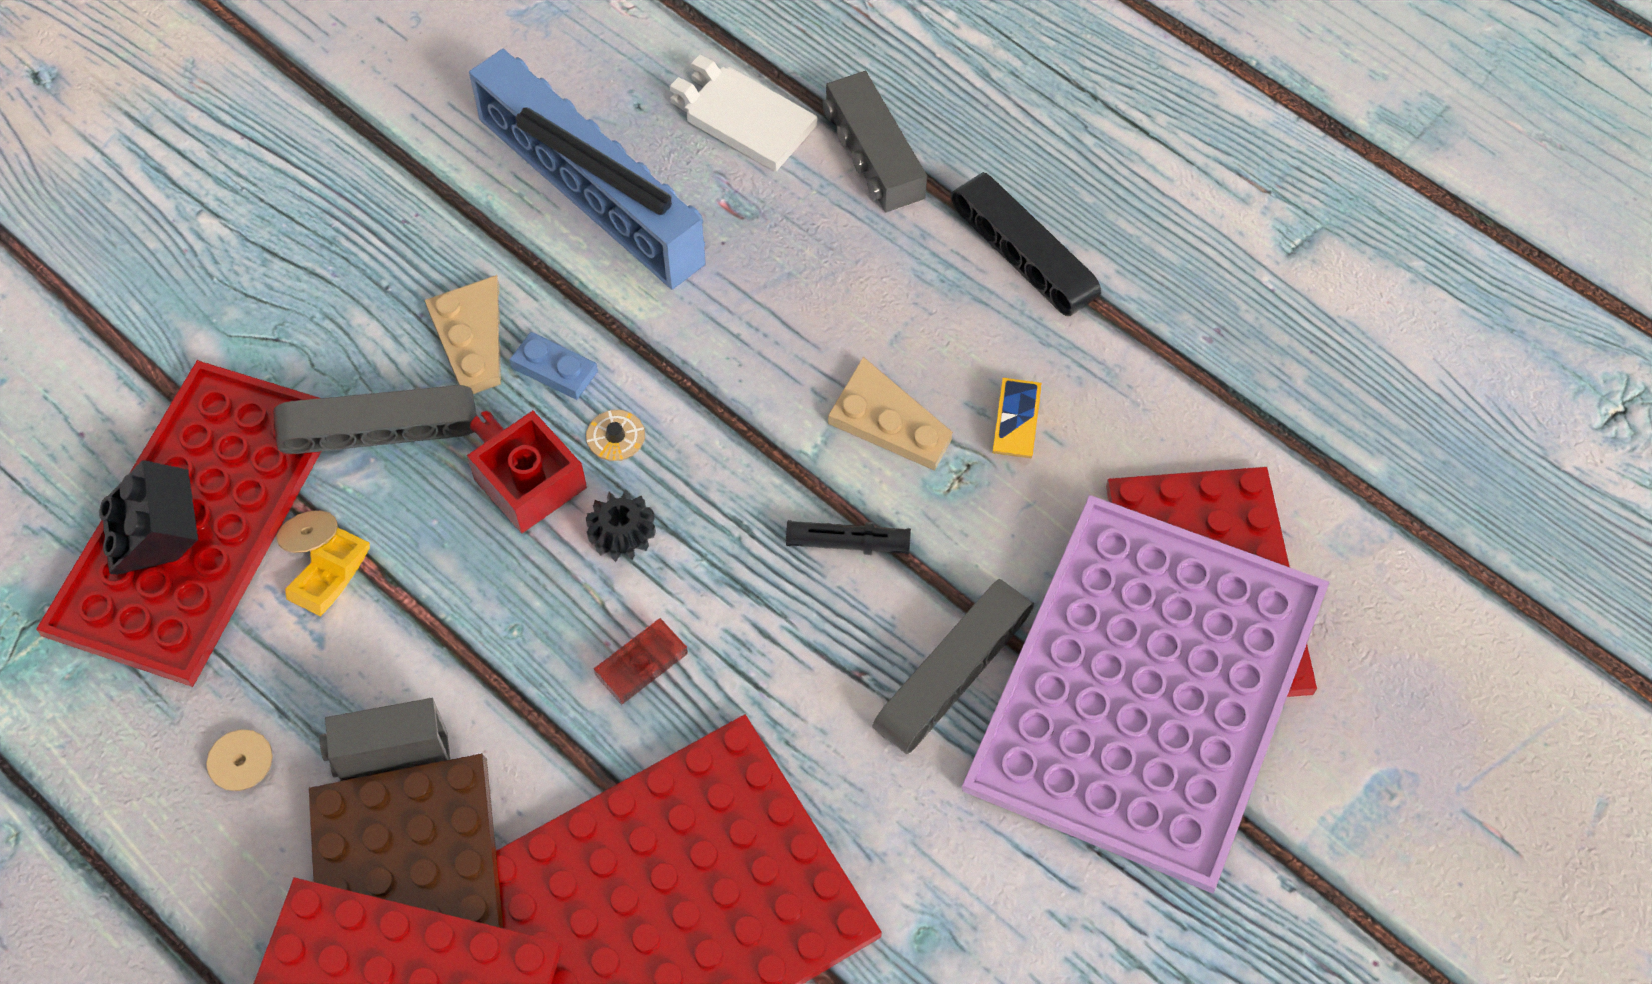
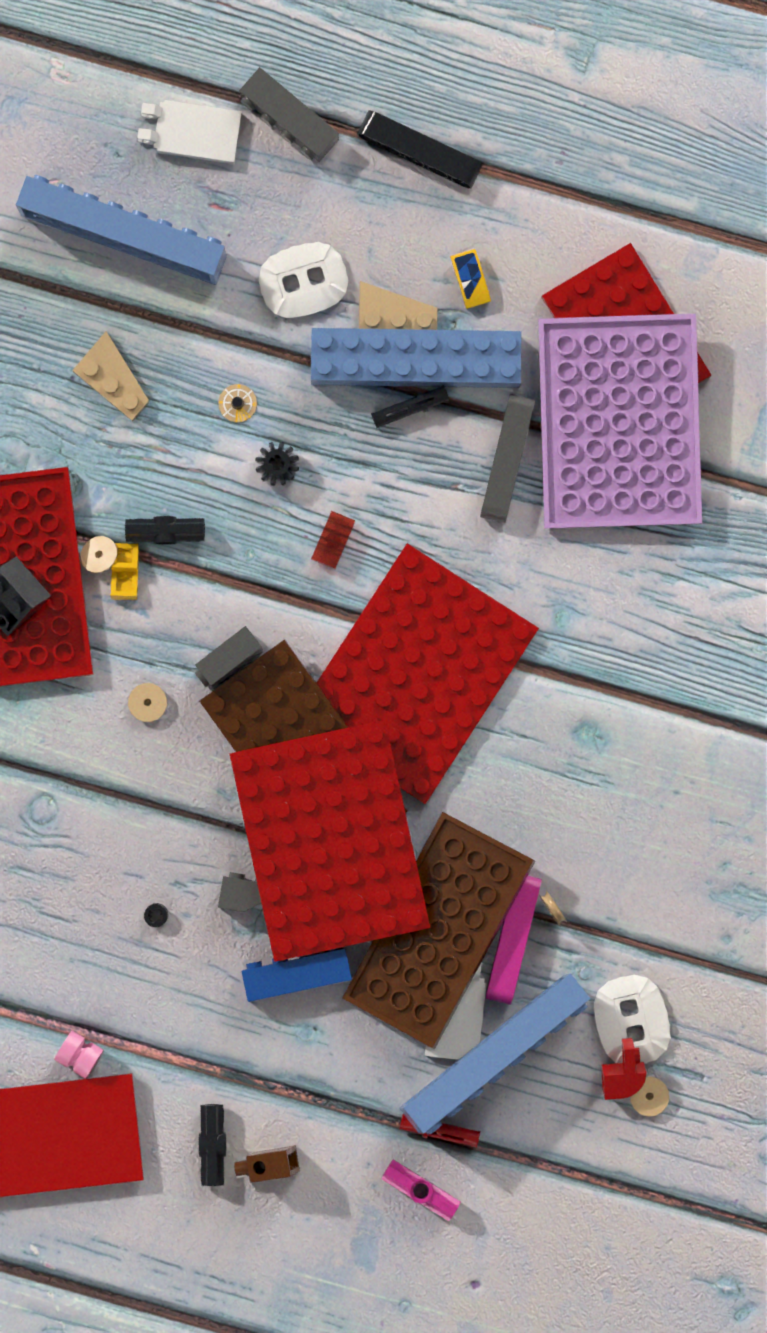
camera: 30 degrees left, 25 degrees up
(374, 419) = (98, 468): dark grey beam -> none
(415, 540) = (165, 530): none -> black piece
(524, 468) = (199, 443): red brick -> none
(553, 365) = (175, 375): medium blue plate -> none
(594, 161) = (136, 238): black axle -> none
(785, 349) = (309, 297): none -> white piece
(891, 477) = (415, 358): none -> medium blue brick

